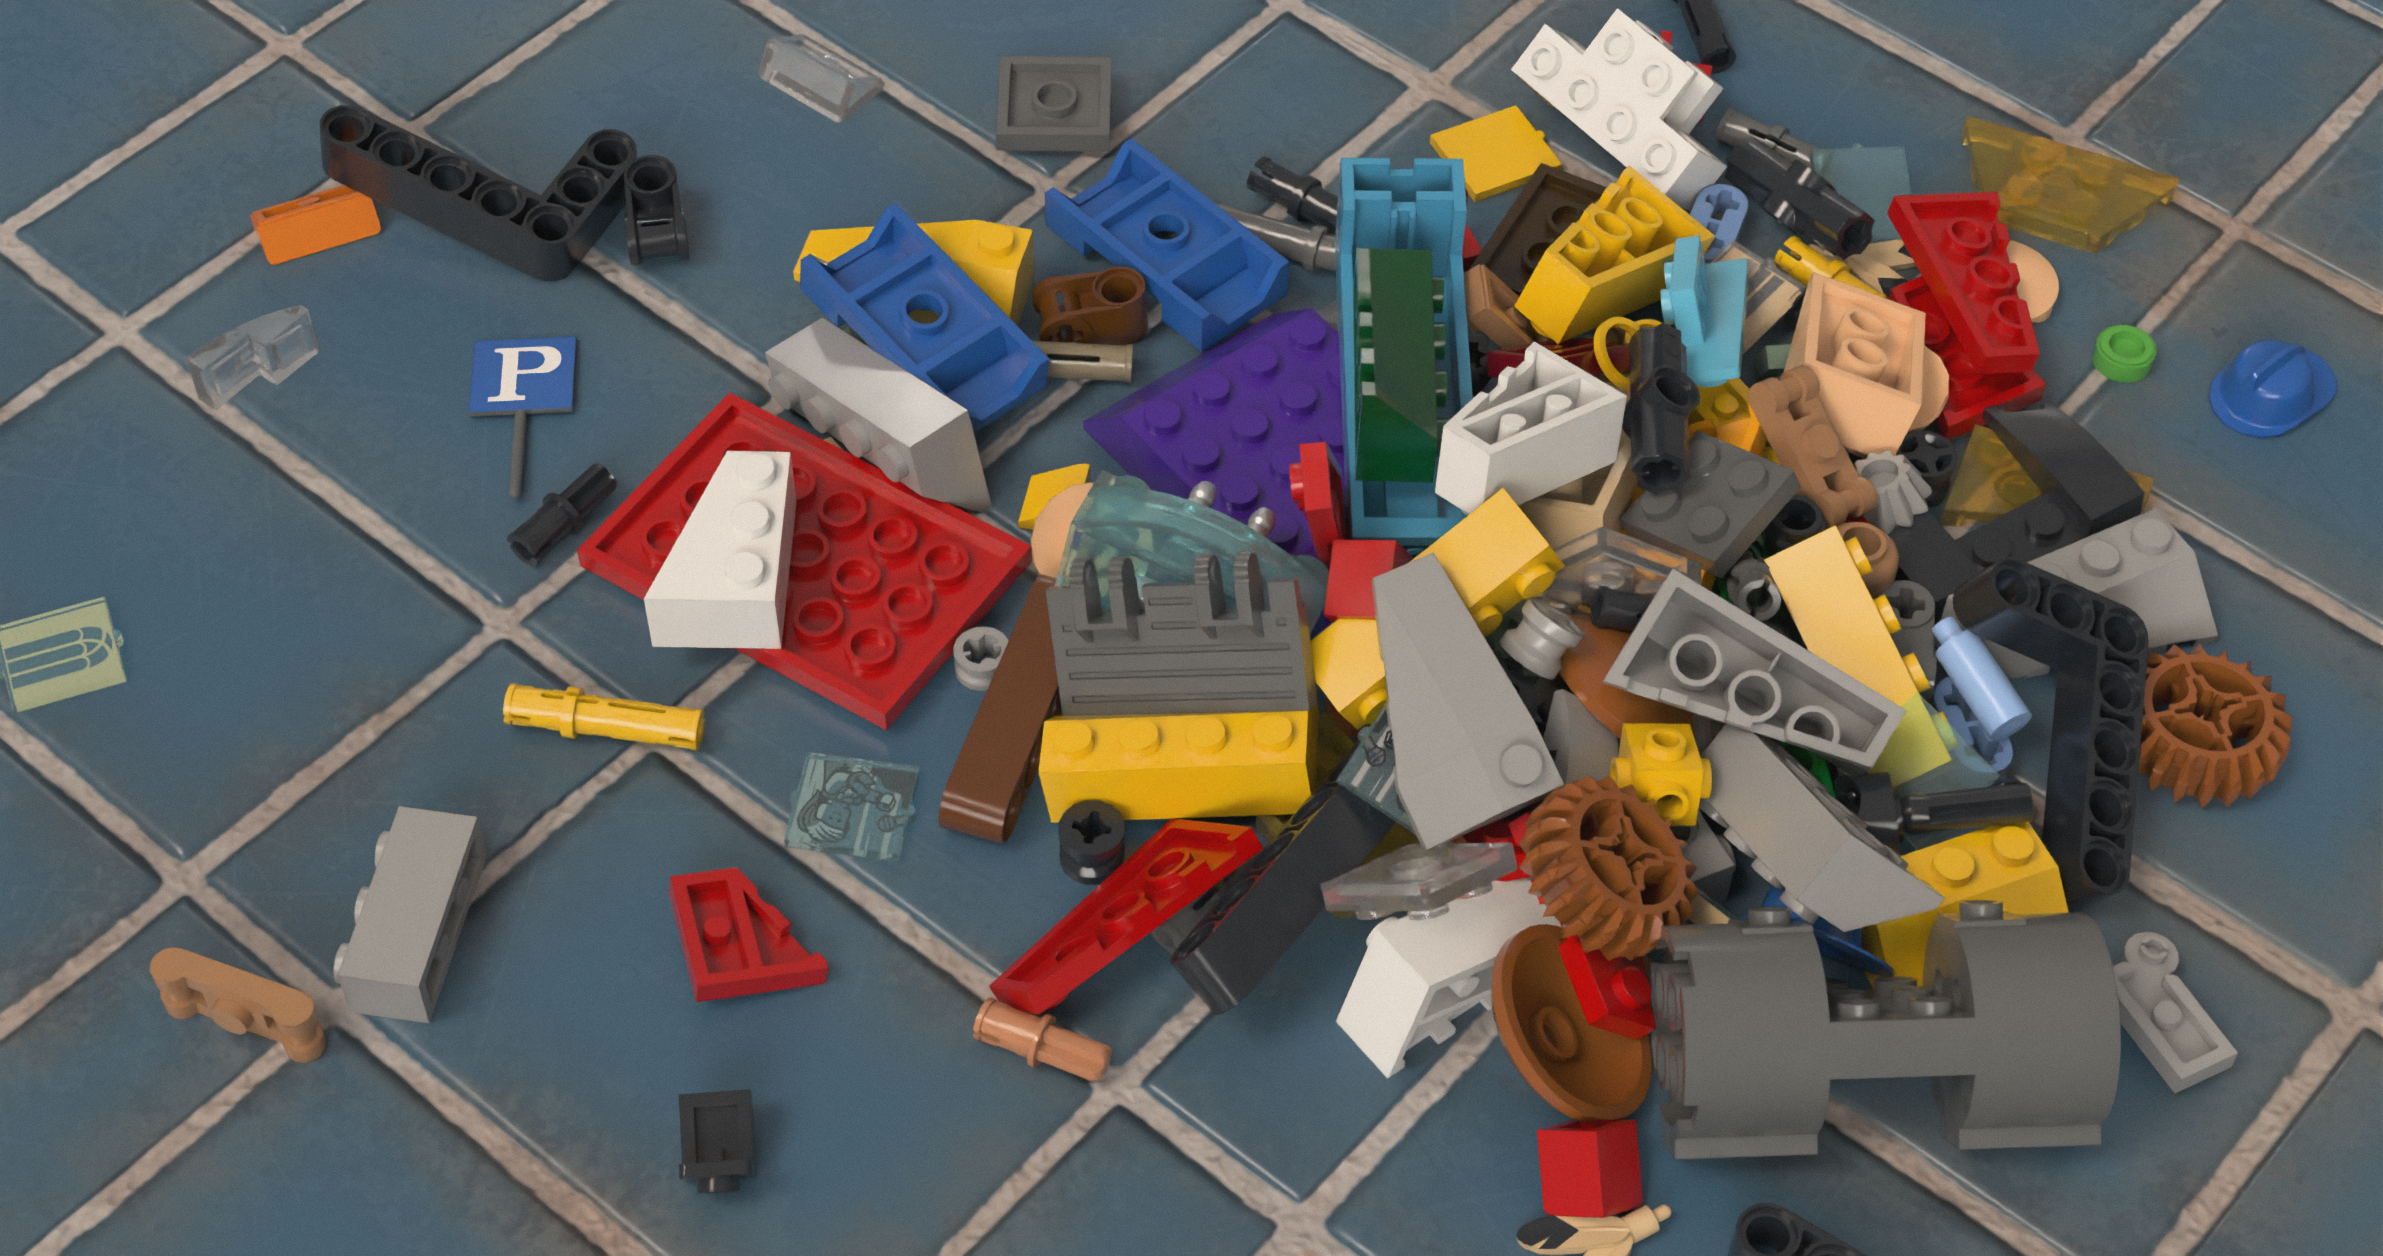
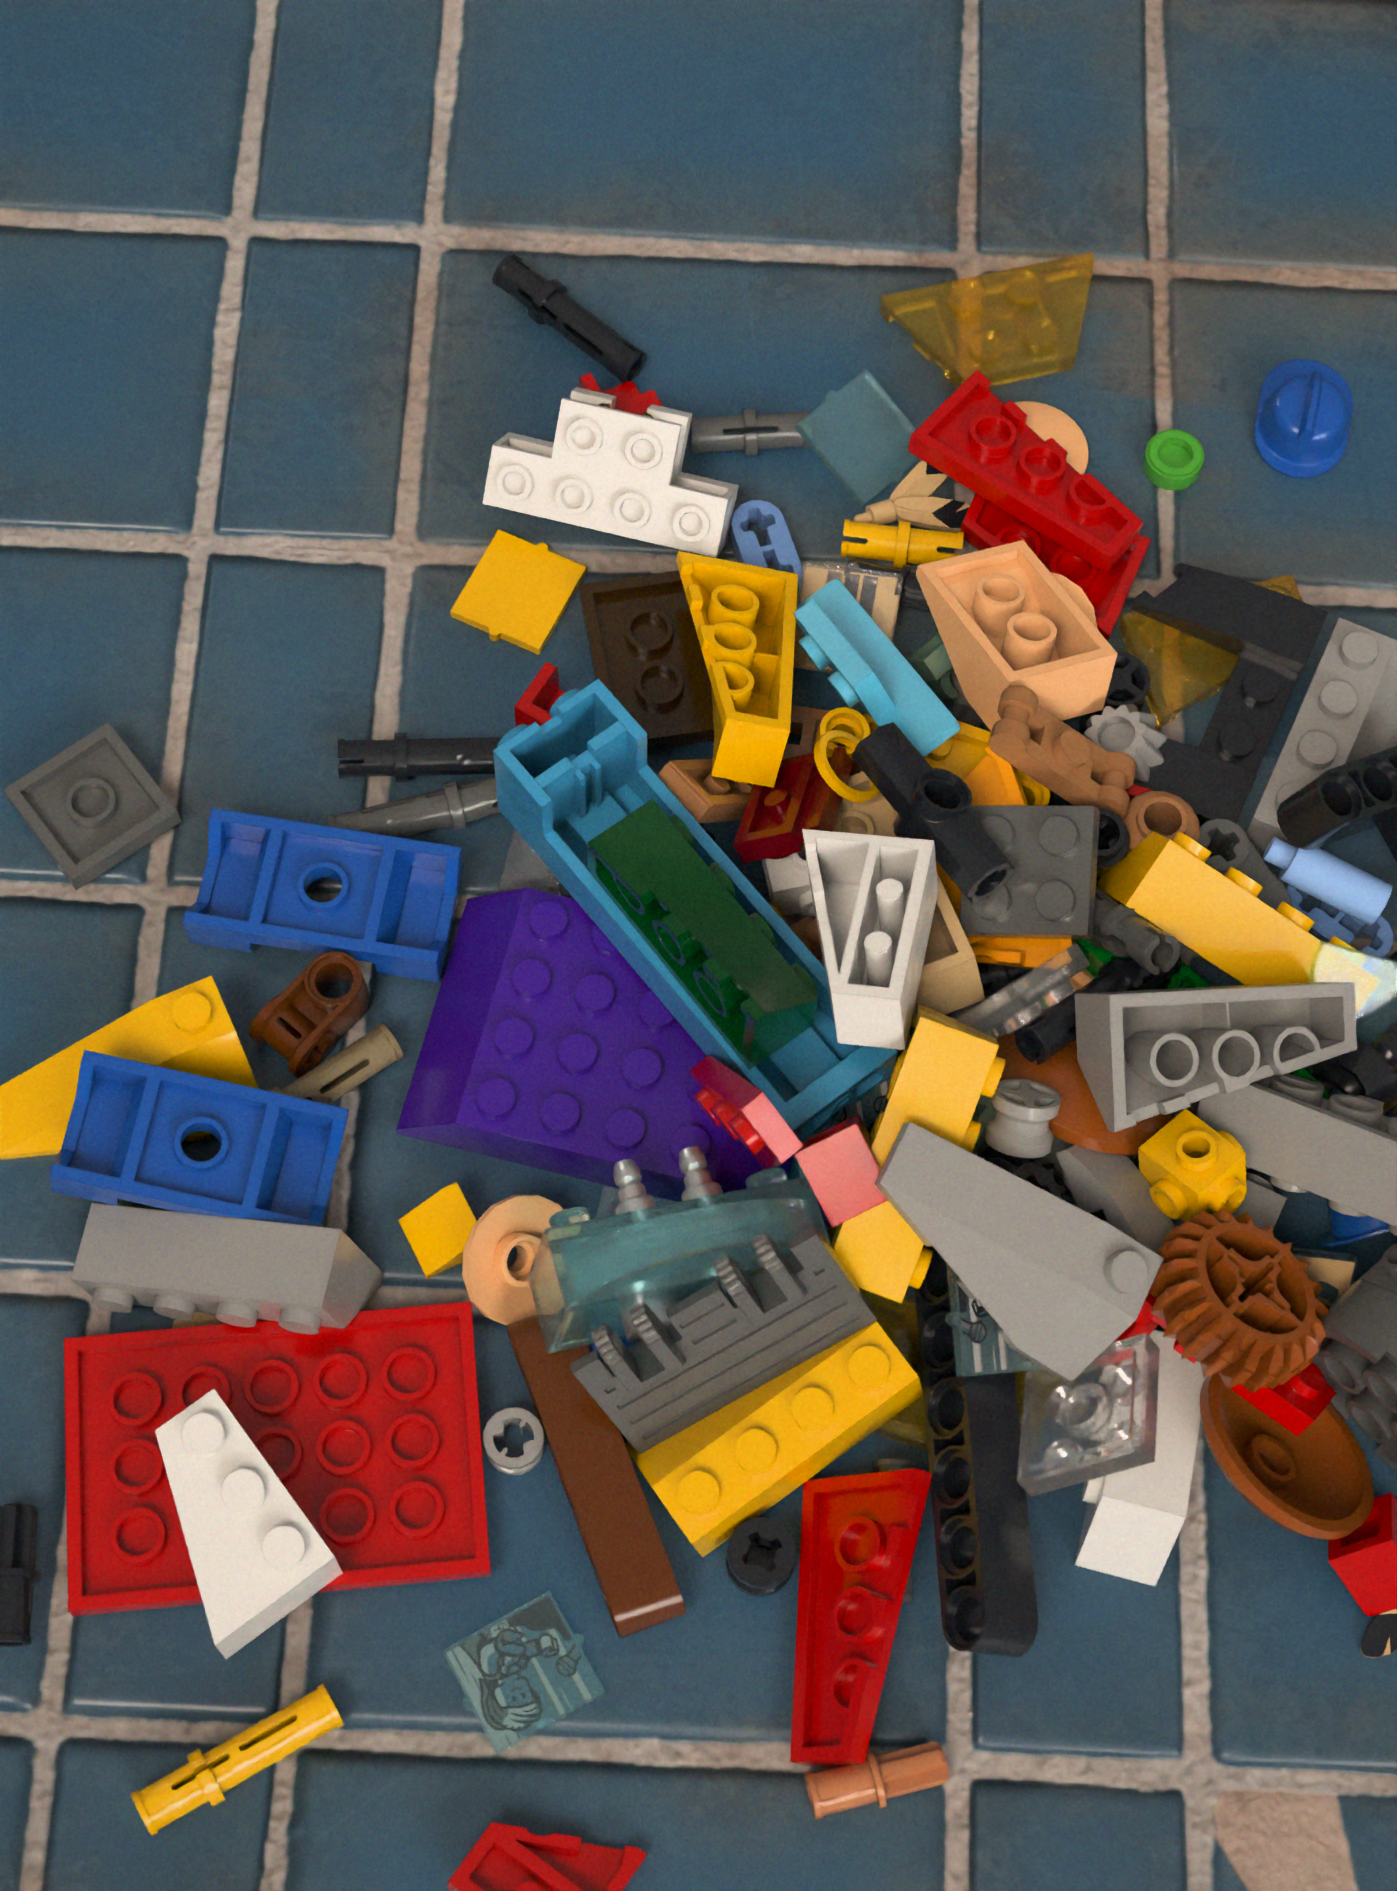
camera: 40 degrees left, 15 degrees up
(1799, 198) = (824, 481): black piece -> none

